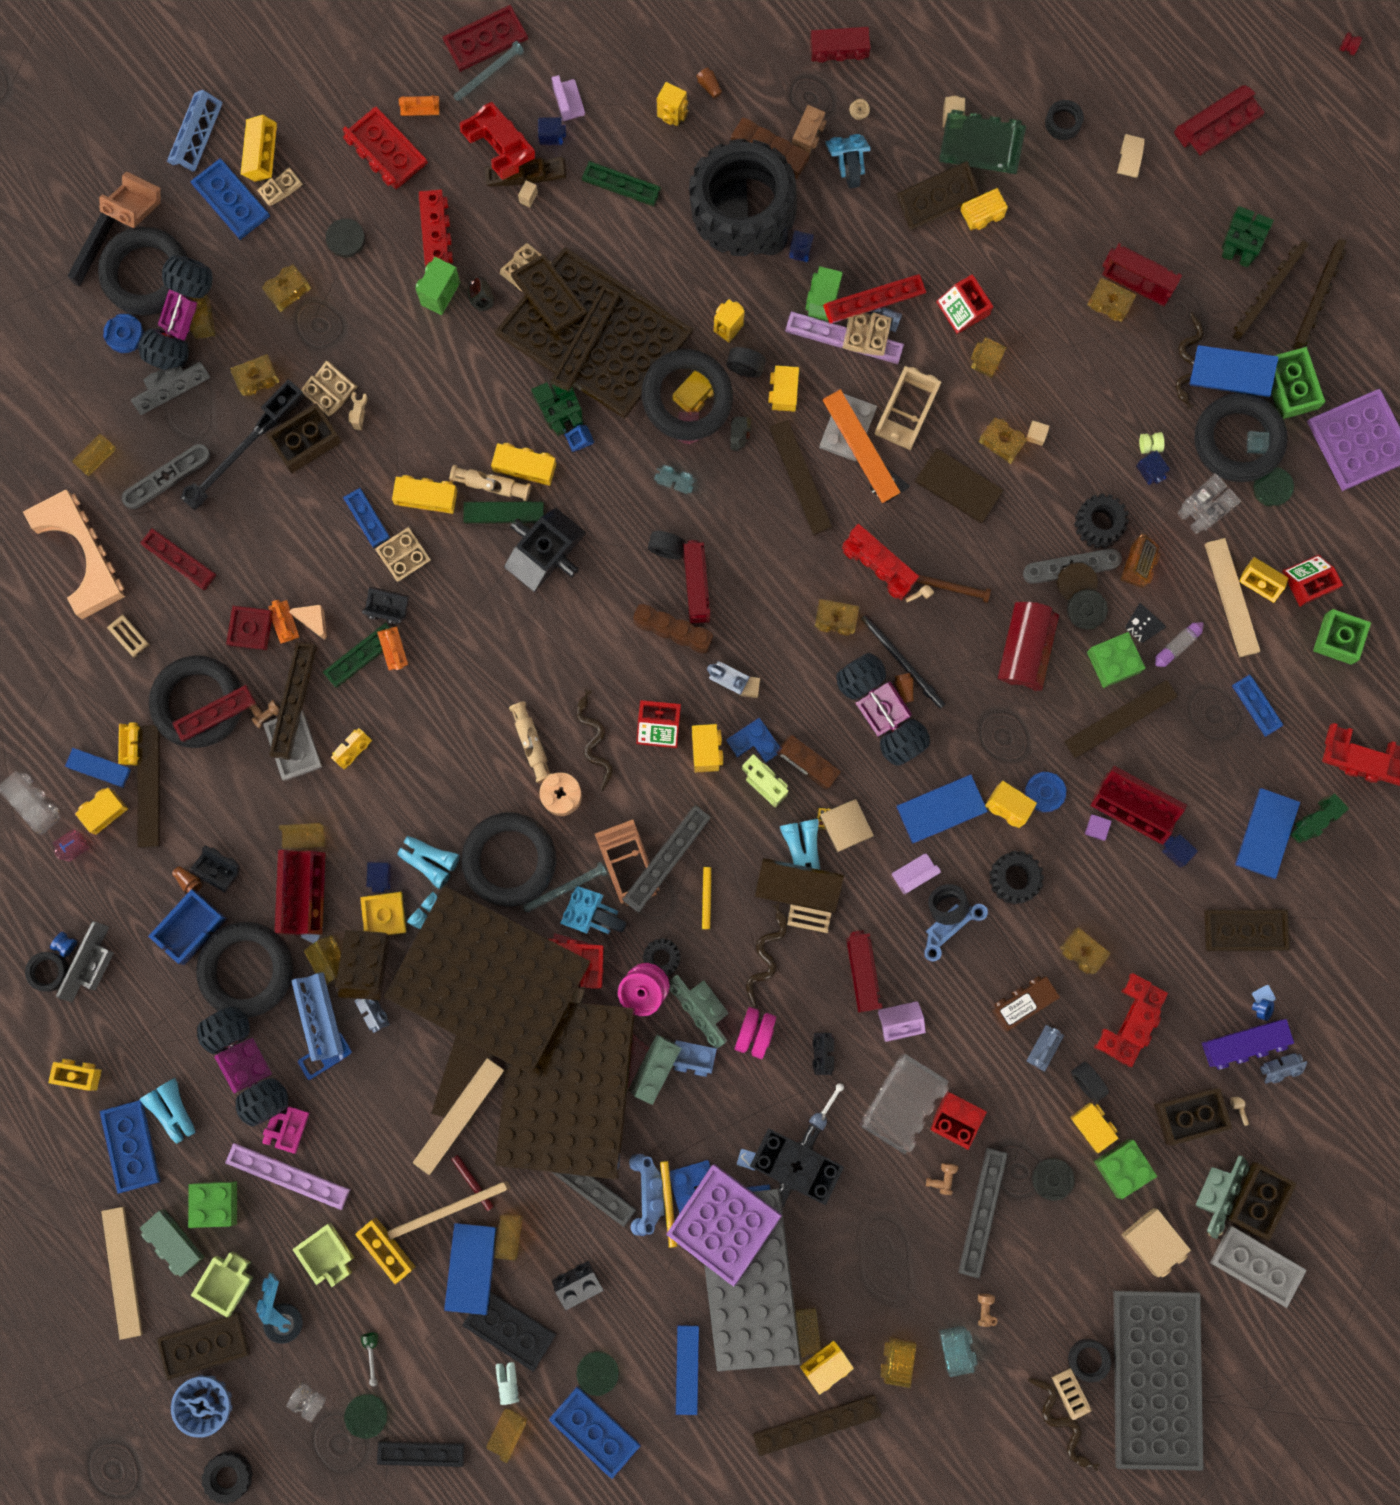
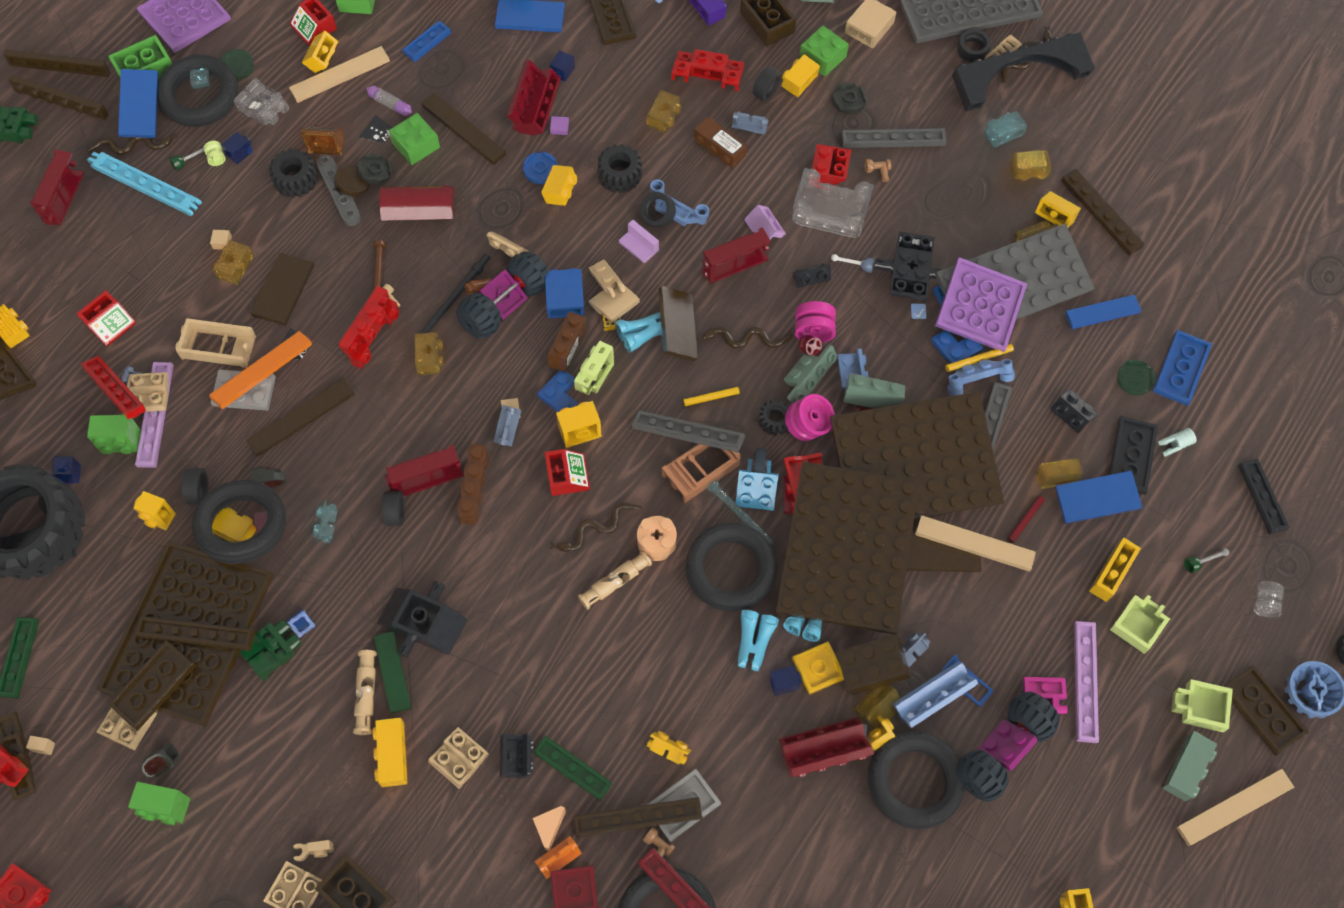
camera: 105 degrees left, 15 degrees down
(130, 1146) = (1120, 840): blue tile -> none
(171, 1096) = (1056, 815): medium azure piece -> none
(187, 880) = (850, 867): dark orange cone -> none
(187, 927) = (896, 849): blue piece -> none
(212, 1204) = (1140, 738): bright green brick -> none
(215, 869) = (829, 841): black bracket -> none
(280, 1322) = (1210, 645): plate -> none
(295, 950) = (879, 737): none -> yellow bracket
(302, 835) = (769, 767): clear yellow panel -> none
(365, 1416) = (1255, 550): clear green tile -> none
(366, 518) = (428, 806): blue tile -> none
(392, 648) = (559, 735): orange hinge -> none
(434, 226) = (93, 830): red brick -> none
(447, 1210) = (1058, 527): tan tile -> none
(506, 1434) = (1216, 430): clear yellow panel -> none
(523, 464) = (338, 664): yellow brick -> none
(732, 1019) = (811, 349): none -> dark red wheel
(784, 389) = (215, 449): yellow brick -> none
(807, 918) = (701, 300): tan tile -> none
(872, 776) = (564, 292): none -> blue brick
(877, 825) = (606, 278): none -> tan hinge
(941, 809) = (577, 237): blue tile -> none
(943, 728) = (509, 247): none -> tan slope
(986, 1319) = (958, 119): medium nougat piece -> none
(987, 356) = (156, 286): clear yellow brick -> none
(1044, 1473) = (1065, 53): none -> black arch
(1107, 291) = (84, 209): clear yellow brick -> none
(1131, 364) = (144, 183): none -> medium azure hinge
(1150, 404) = (178, 161): none -> dark green hinge

